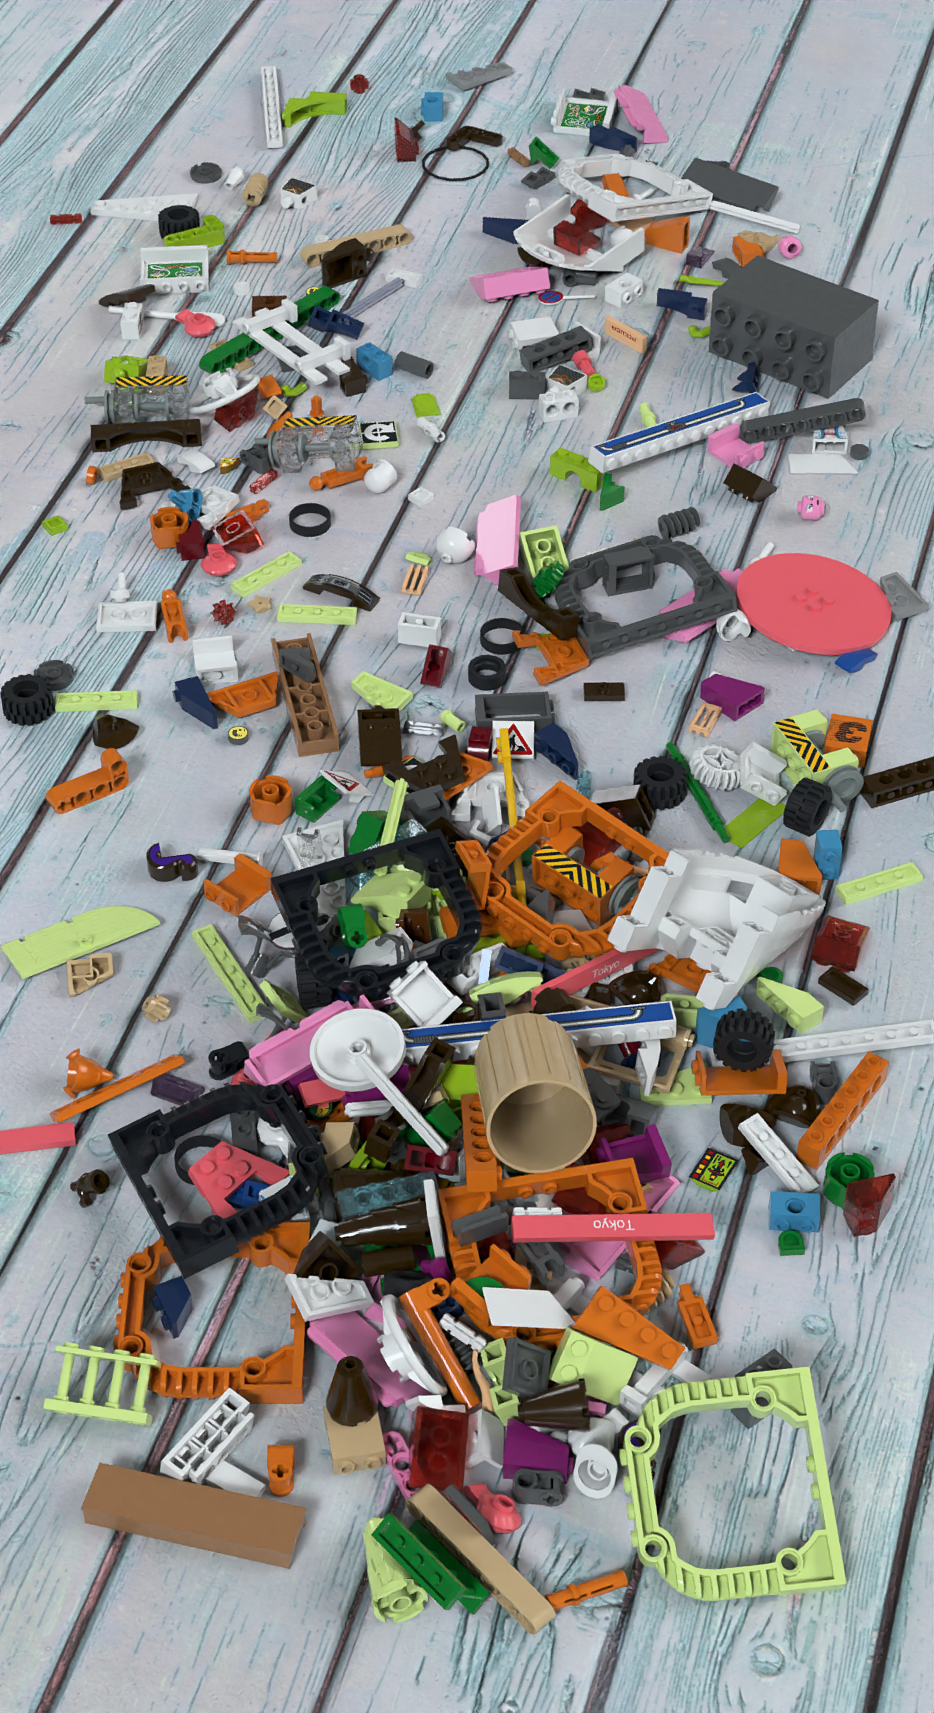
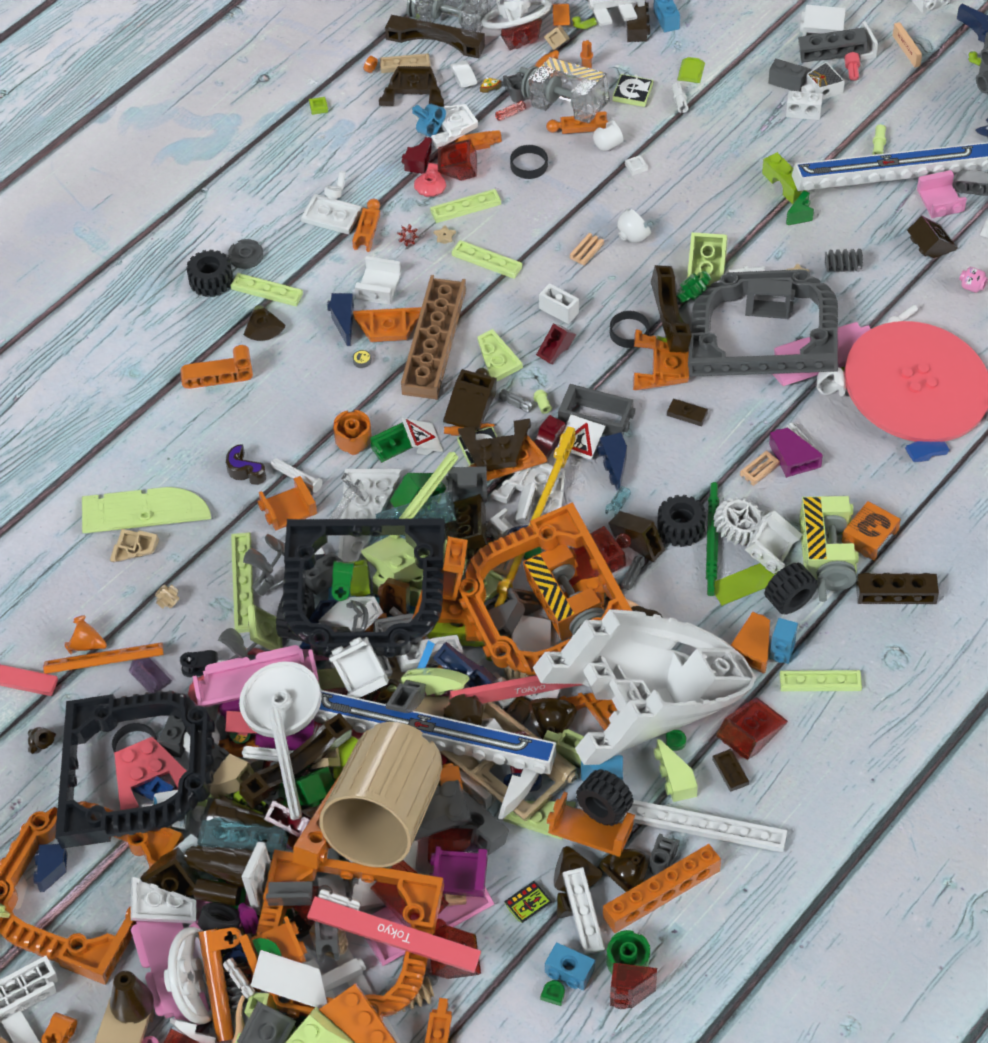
camera: 25 degrees right, 10 degrees up
(167, 525) = (404, 134): orange brick -> none
(297, 662) = (436, 307): dark grey slope -> none
(361, 596) = (521, 241): slope -> none
(414, 365) = (700, 25): dark grey pin -> none
(419, 557) = (602, 227): yellowish green piece -> none
(487, 682) = (600, 372): black tyre -> none
(497, 538) = (675, 229): bright pink slope -> none
(596, 382) = (853, 89): lime tile -> none

